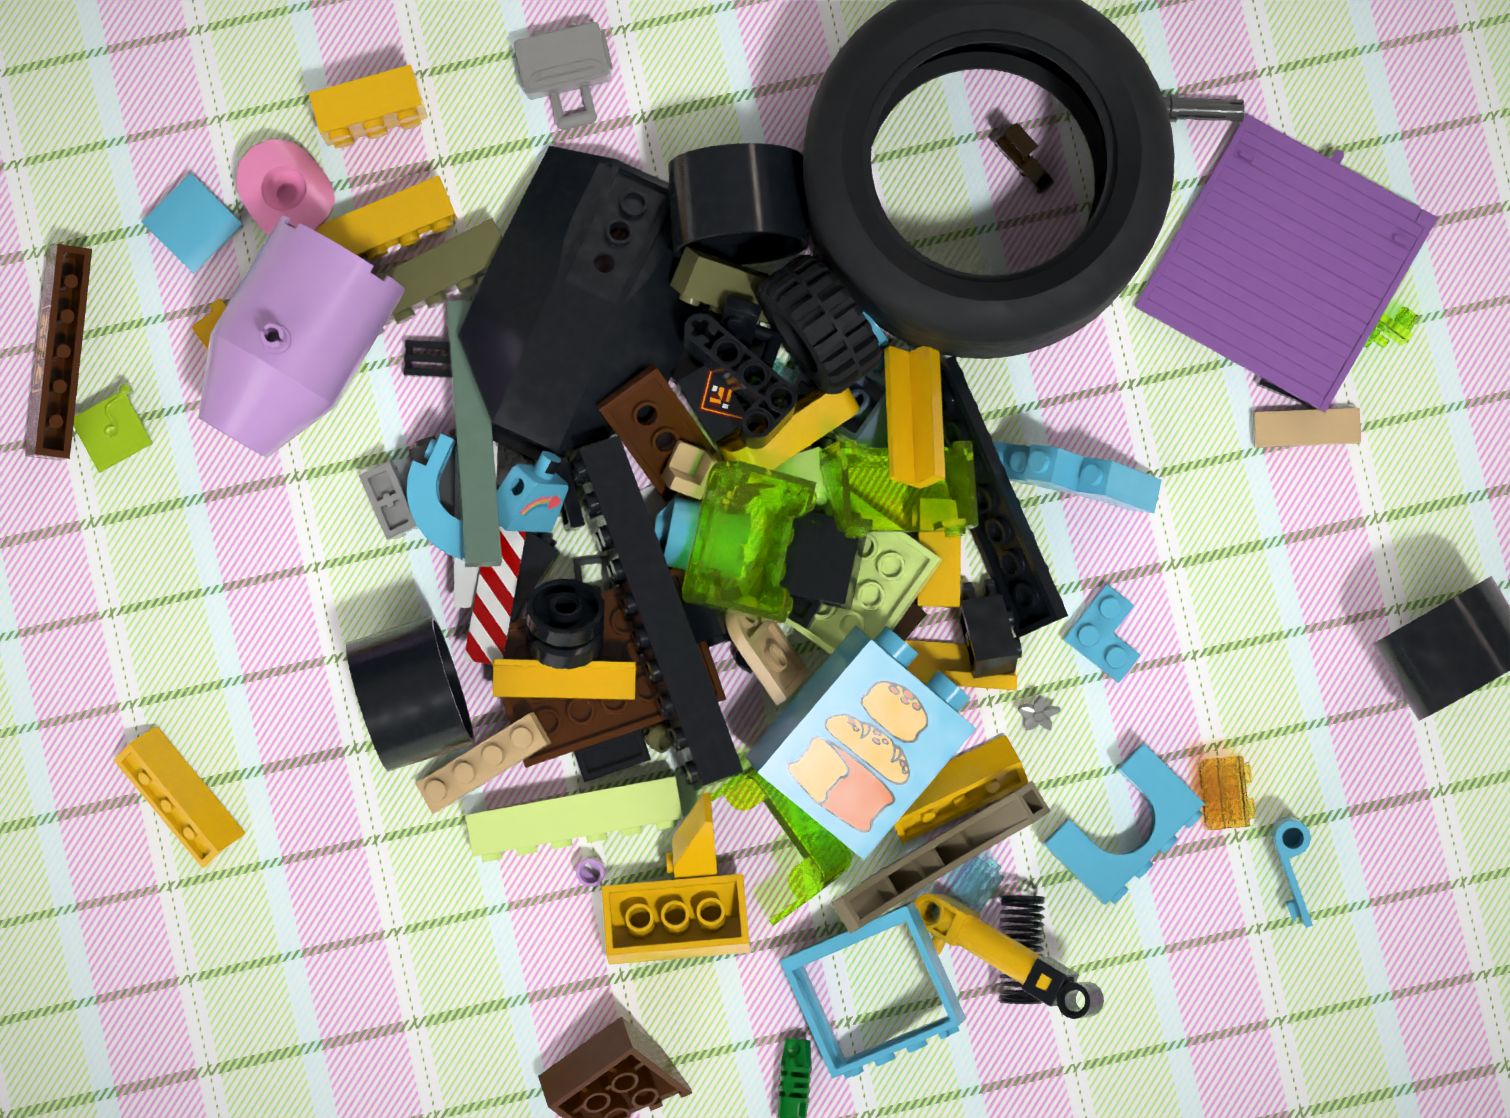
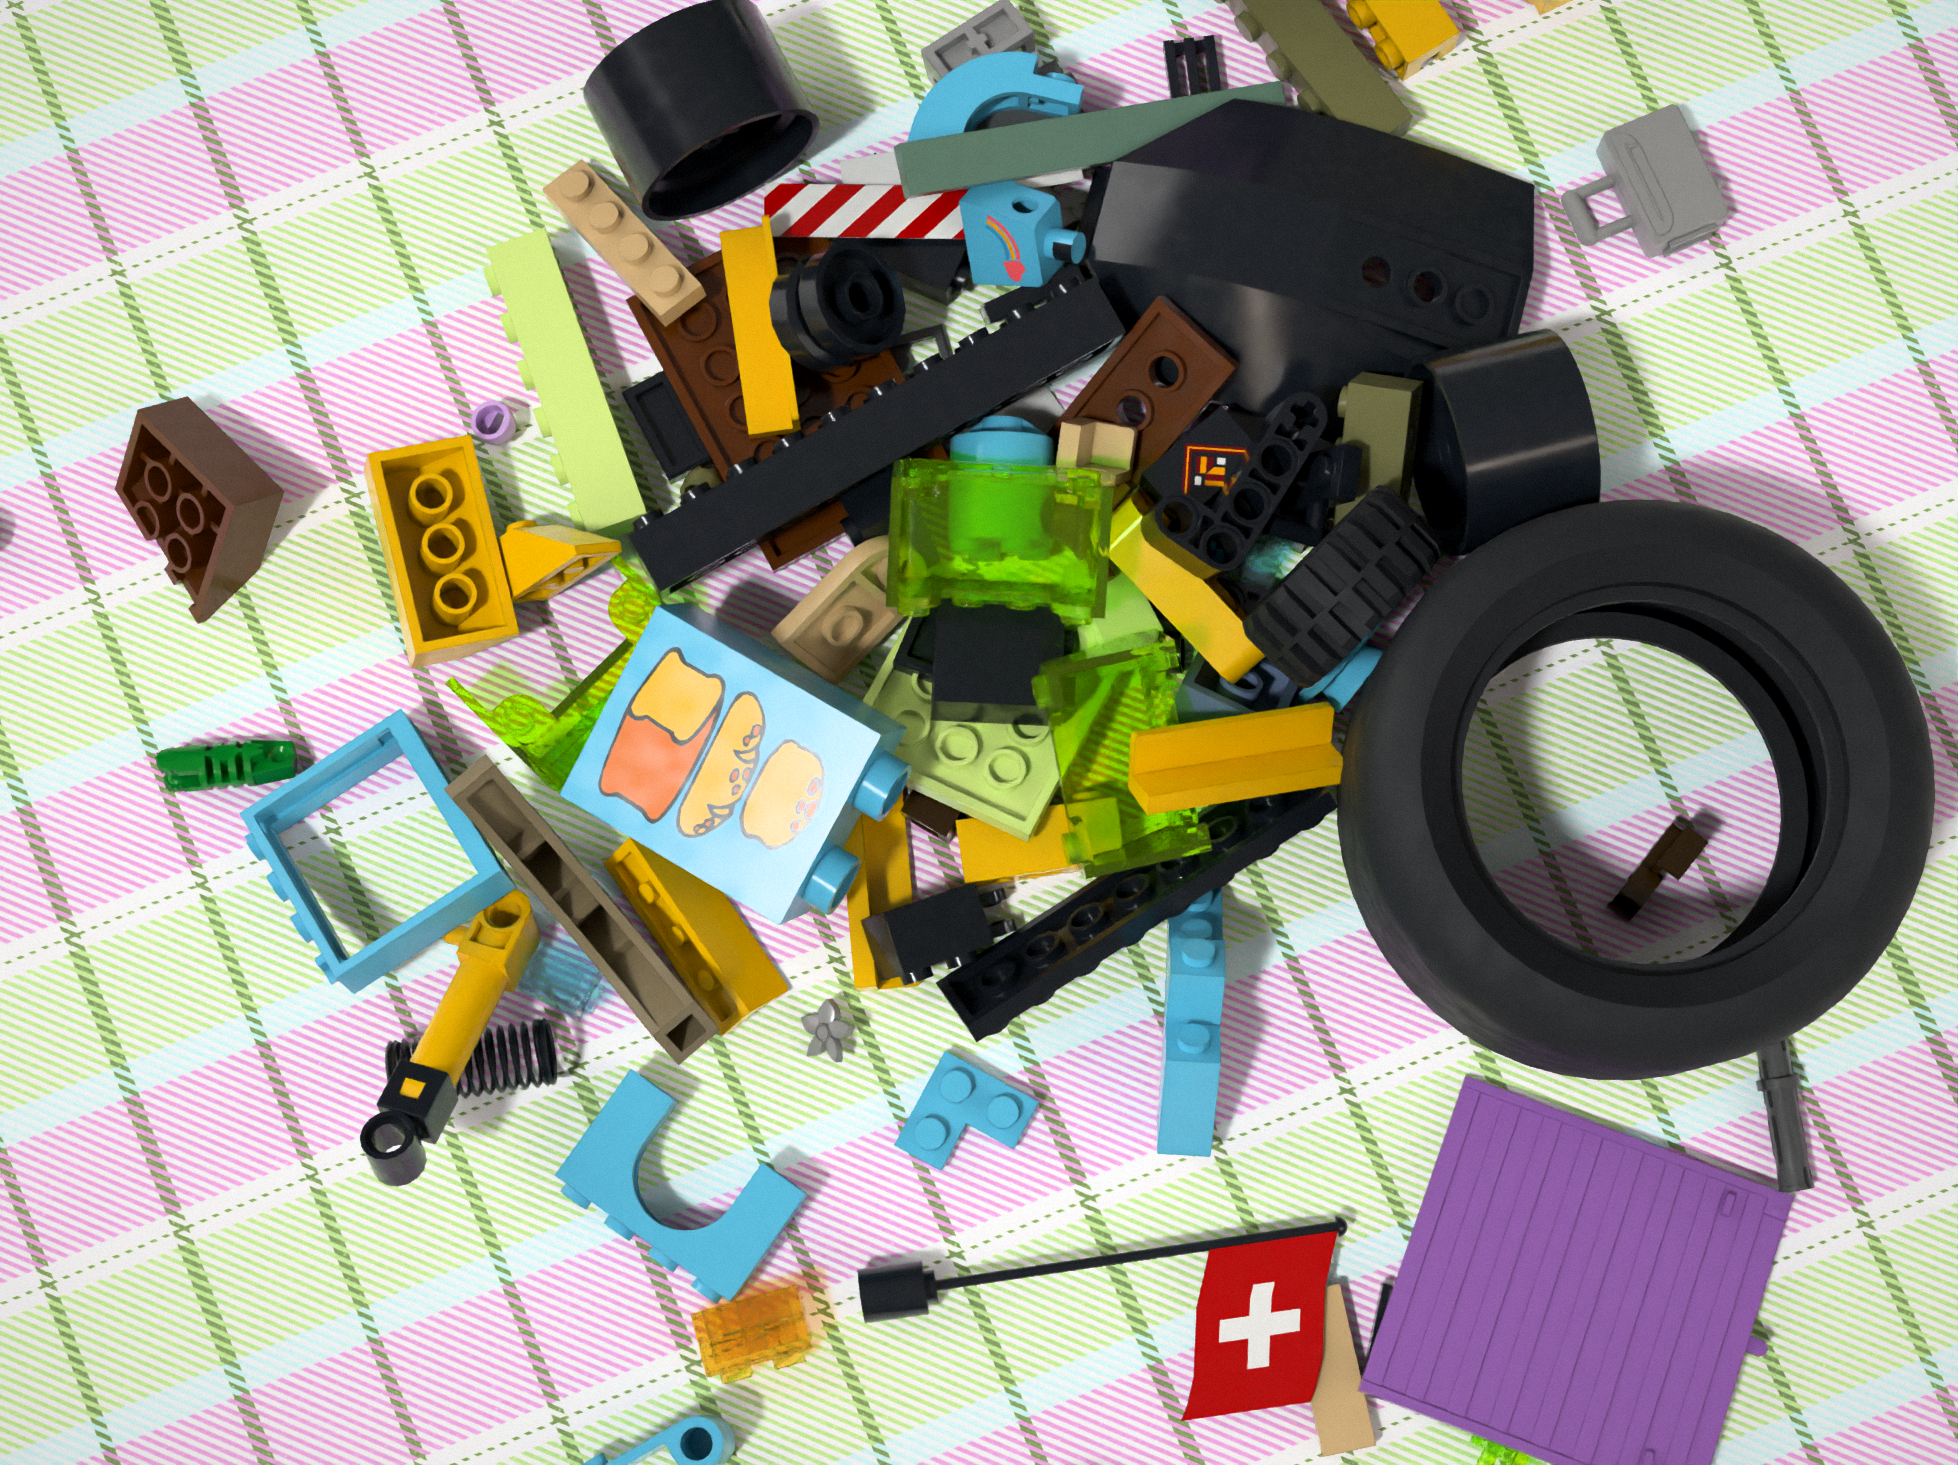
camera: 85 degrees right, 5 degrees down
(1270, 471) = (1254, 1310): none -> red flag

